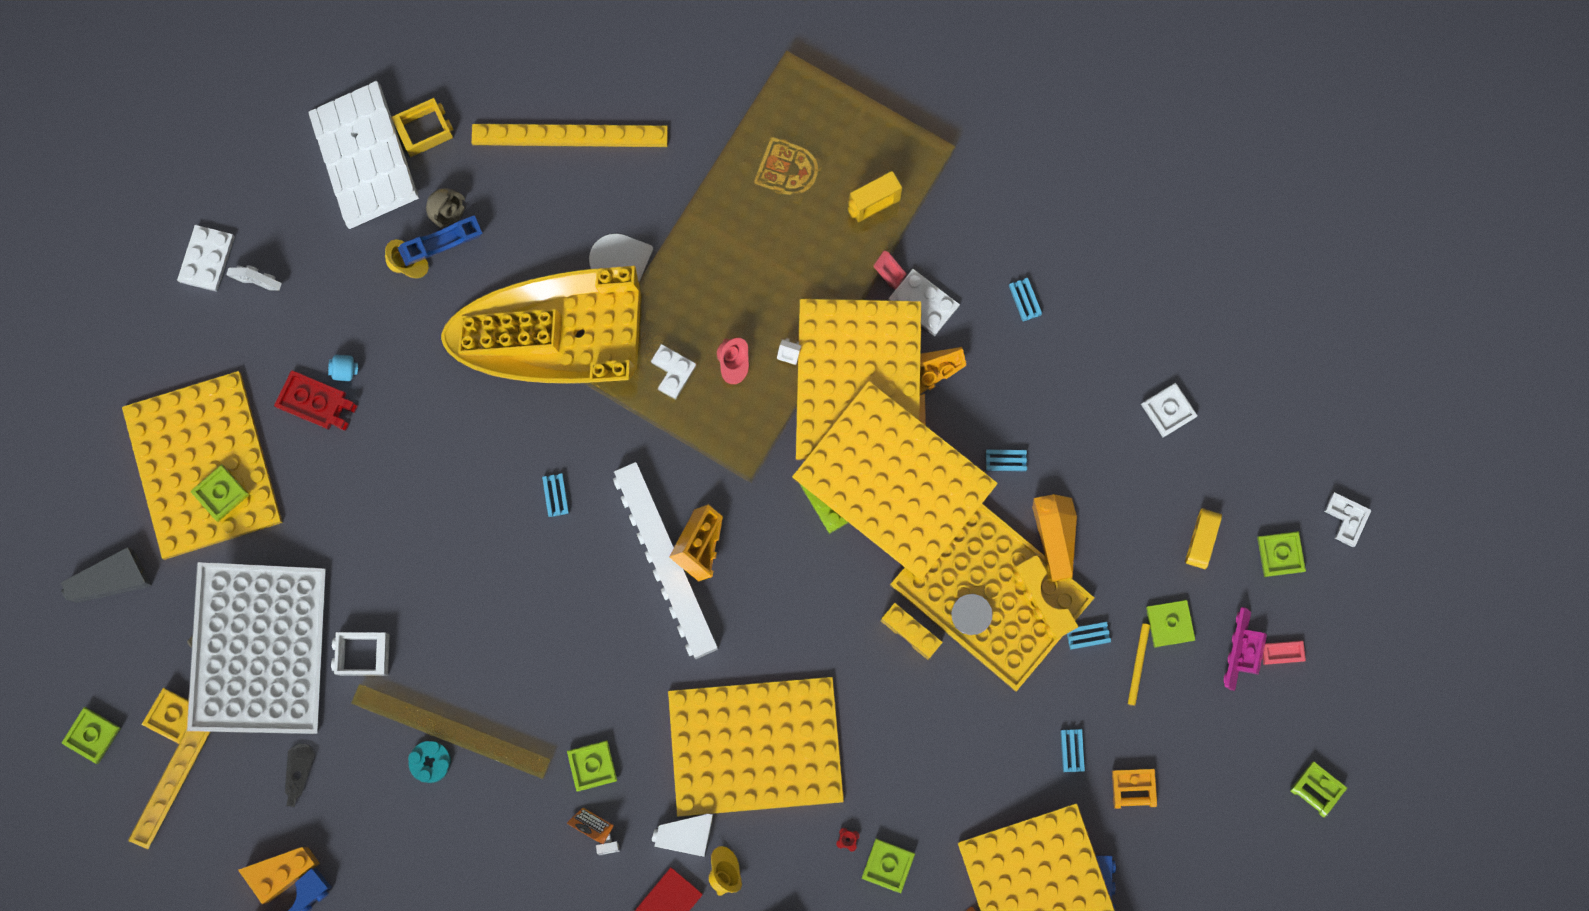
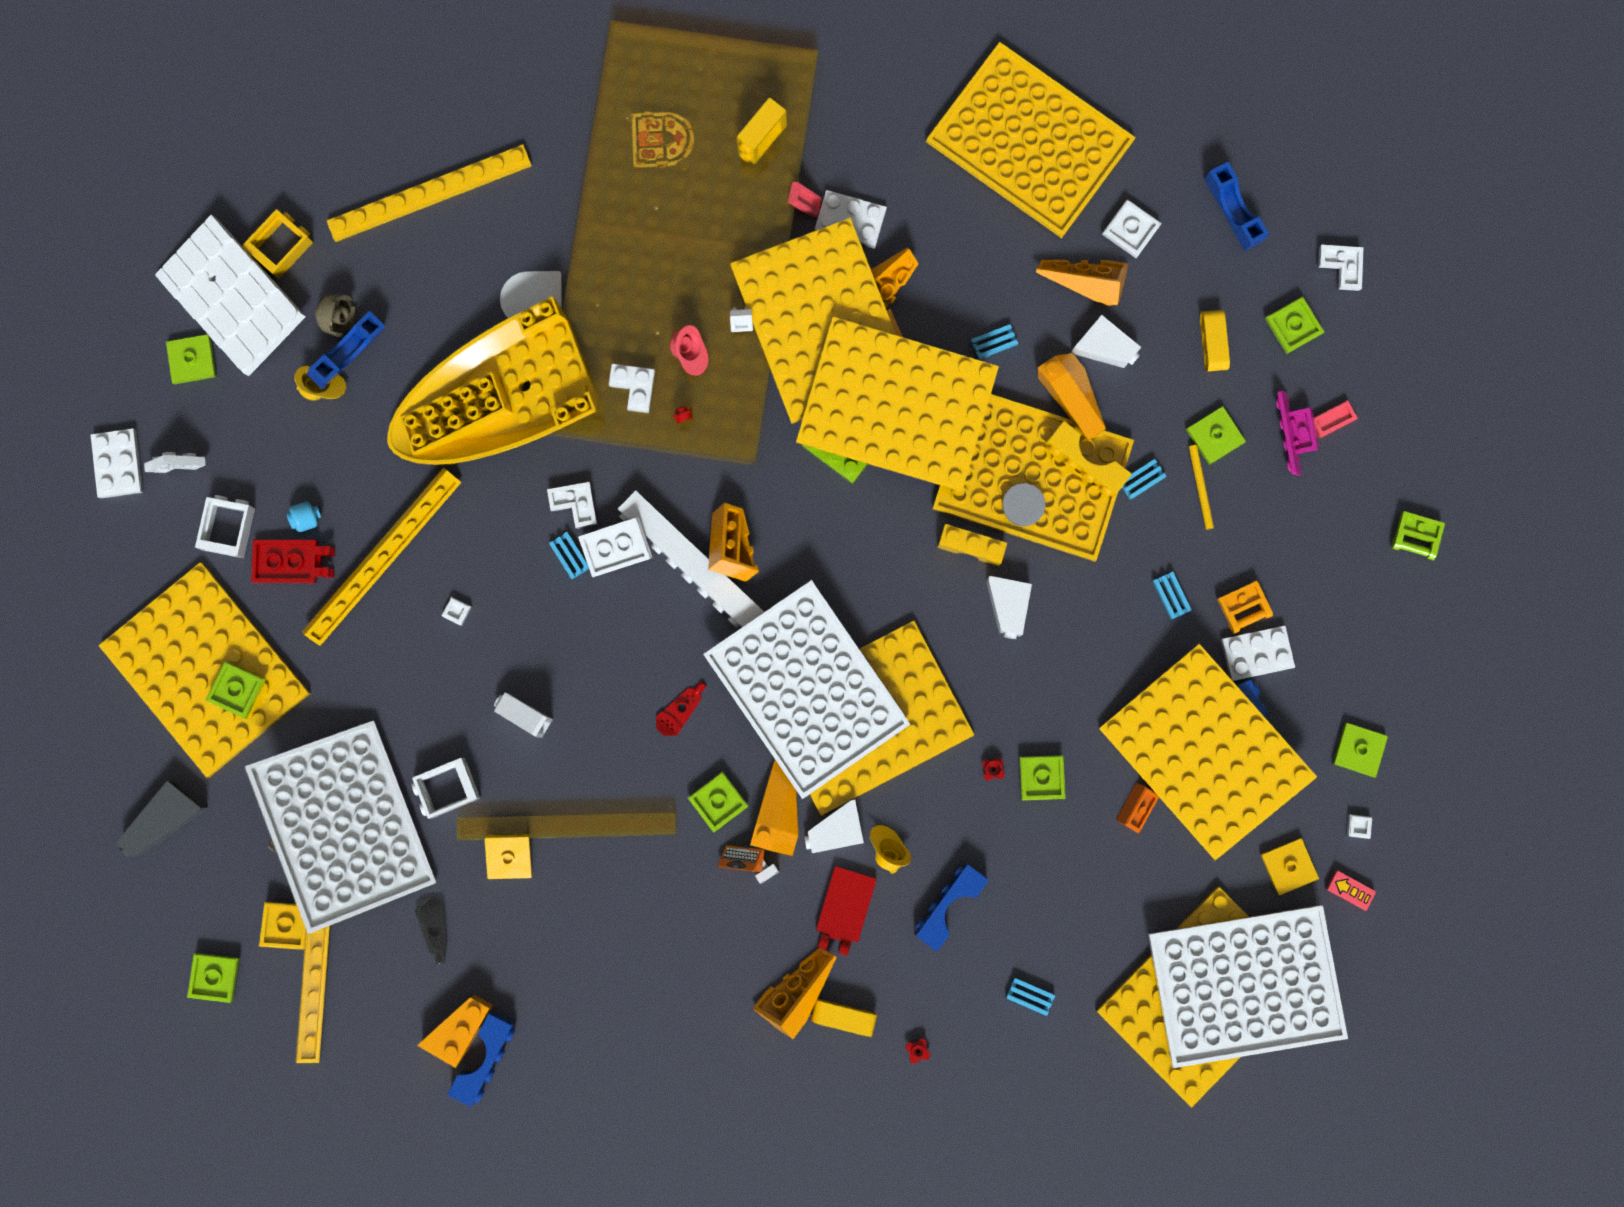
camera: 25 degrees left, 5 degrees up
(260, 338) = (207, 521): none -> white window
(307, 195) = (191, 359): none -> lime plate
(389, 737) = (508, 856): none -> yellow plate
(393, 429) = (381, 557): none -> yellow plate
(437, 503) = (456, 611): none -> white tile
(440, 765) = (558, 876): teal plate -> none
(455, 617) = (522, 714): none -> white slope
(583, 447) = (578, 498): none -> white plate
(586, 674) = (678, 718): none -> red piece
(597, 504) = (615, 547): none -> white plate
(638, 802) = (778, 817): none -> light orange wedge
(703, 412) = (682, 414): none -> red plate
(710, 698) = (806, 689): none -> white plate
(923, 698) = (1009, 604): none -> white slope
(1019, 284) = (936, 163): medium azure tile -> none
(1105, 503) = (1107, 344): none -> white slope
(1111, 297) = (1030, 140): none -> yellow plate
(1117, 443) = (1096, 281): none -> light orange wedge
(1129, 835) = (1257, 653): none -> white plate
(1267, 409) = (1225, 189): none -> blue arch

